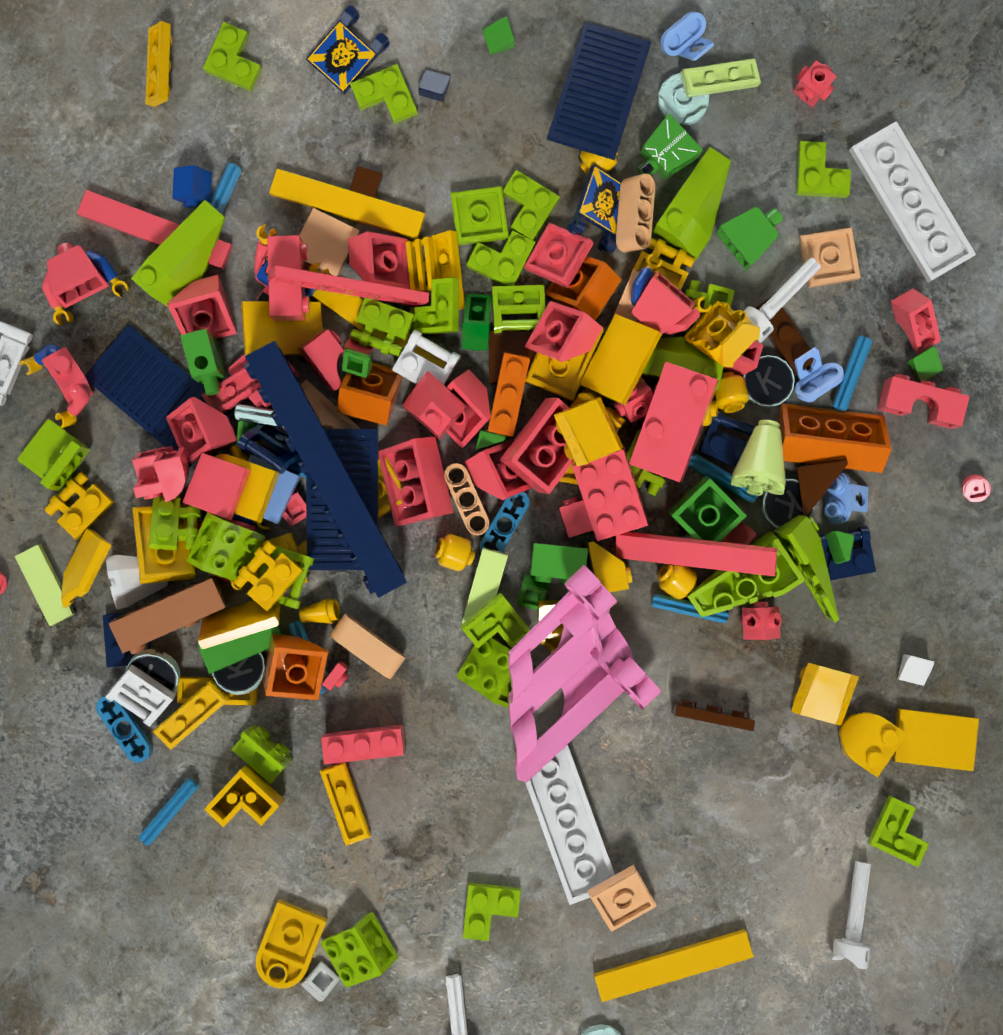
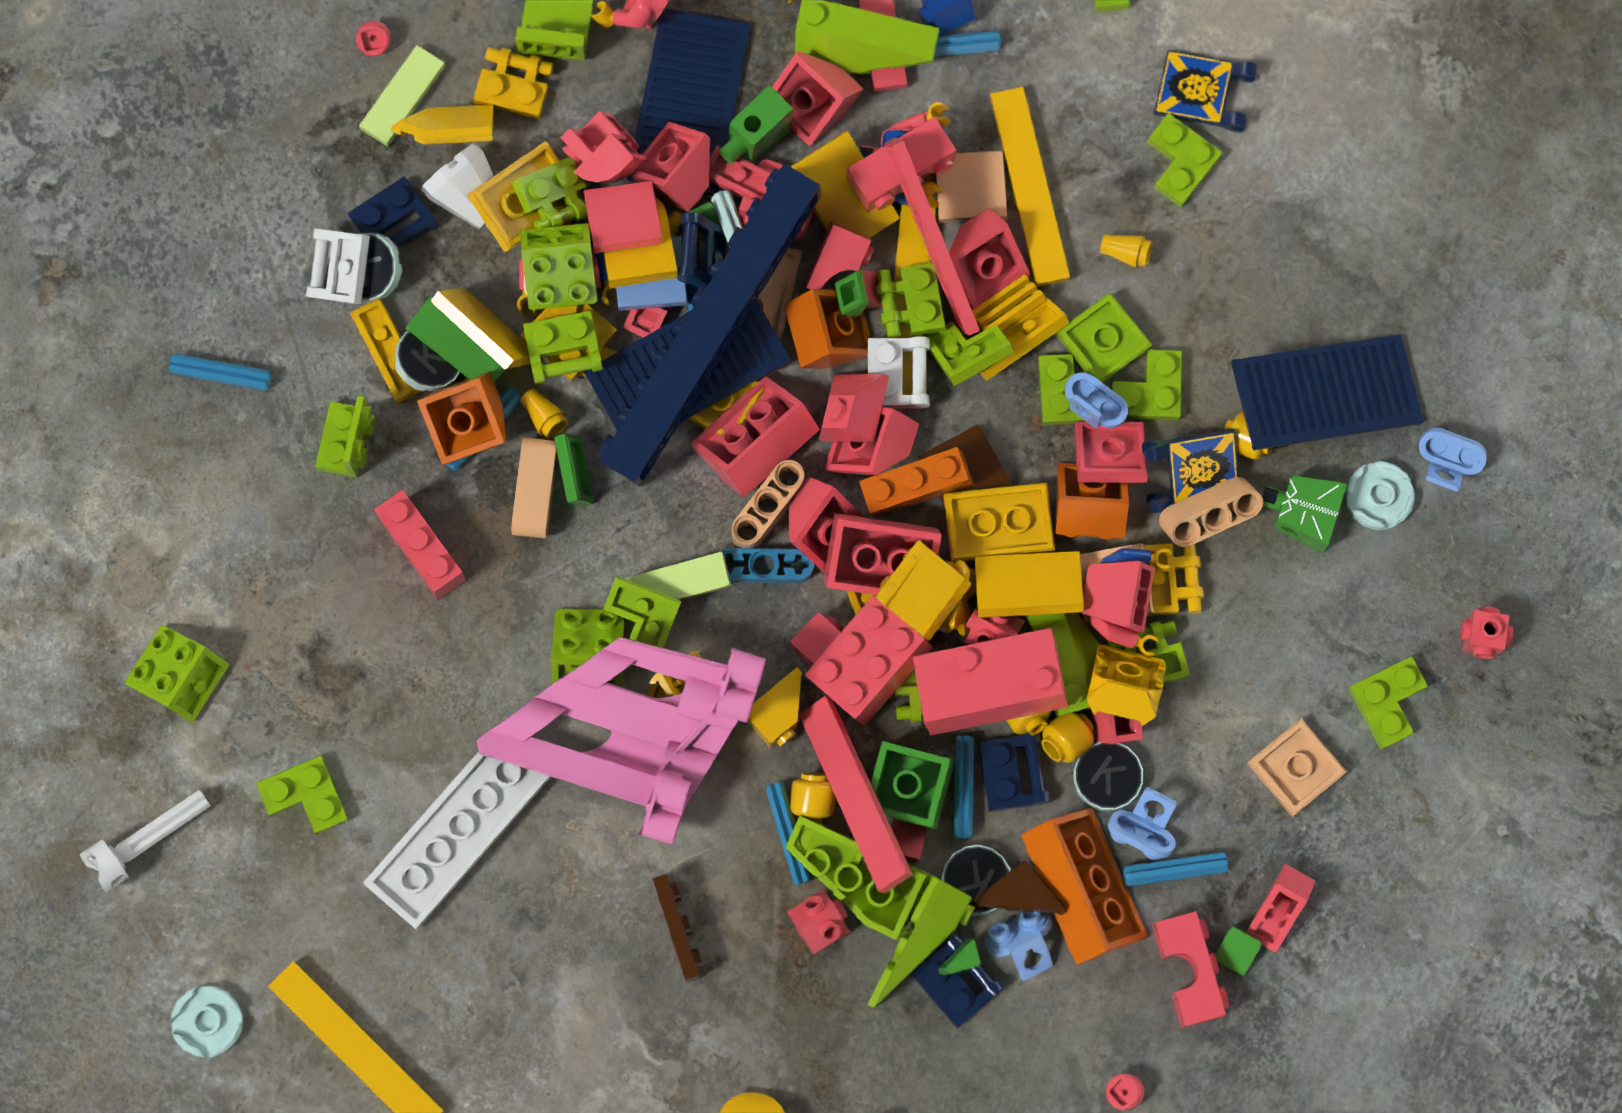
camera: 55 degrees right, 10 degrees down
(121, 739) = (269, 289): dark azure beam -> none
(167, 614) = (449, 244): nougat brick -> none
(191, 714) = (345, 334): yellow tile -> none
(245, 792) = (291, 440): yellow brick -> none
(274, 581) = (552, 338): yellow plate -> none
(289, 944) = (141, 589): yellow tile -> none
(320, 981) = (115, 650): white slope -> none
(337, 676) = (480, 471): coral plate -> none
(345, 803) = (338, 564): yellow tile -> none
(366, 182) = (1067, 193): reddish brown tile -> none
(370, 614) = (574, 470): none -> bright green tile
(427, 164) = (1128, 249): none -> yellow cone
(434, 85) = (1224, 207): slope -> none
(454, 552) = (698, 525): yellow head -> none
(476, 322) = (979, 403): green slope -> none
(488, 439) = (851, 490): bright green slope -> none
(499, 36) = (1323, 247): bright green slope -> none
(517, 300) = (1030, 435): lime plate -> none
(521, 244) = (1095, 401): none -> light blue bracket
(532, 592) = (706, 639): bright green slope -> none
(556, 562) = (752, 632): bright green brick -> none
(563, 333) = (1020, 503): coral slope -> none
(622, 898) = (403, 940): light nougat tile -> none
(694, 209) = (1258, 577): lime wedge -> none
(720, 77) = (1428, 522): yellowish green tile -> none
(750, 234) = (1266, 659): bright green torso -> none
(762, 461) = (1005, 811): yellowish green cone -> none
(780, 298) = (1170, 720): white piece -> none
(787, 339) = (1176, 759): reddish brown plate -> none
(824, 693) = (777, 1046): yellow slope -> none
(912, 201) = (1418, 826): white plate -> none

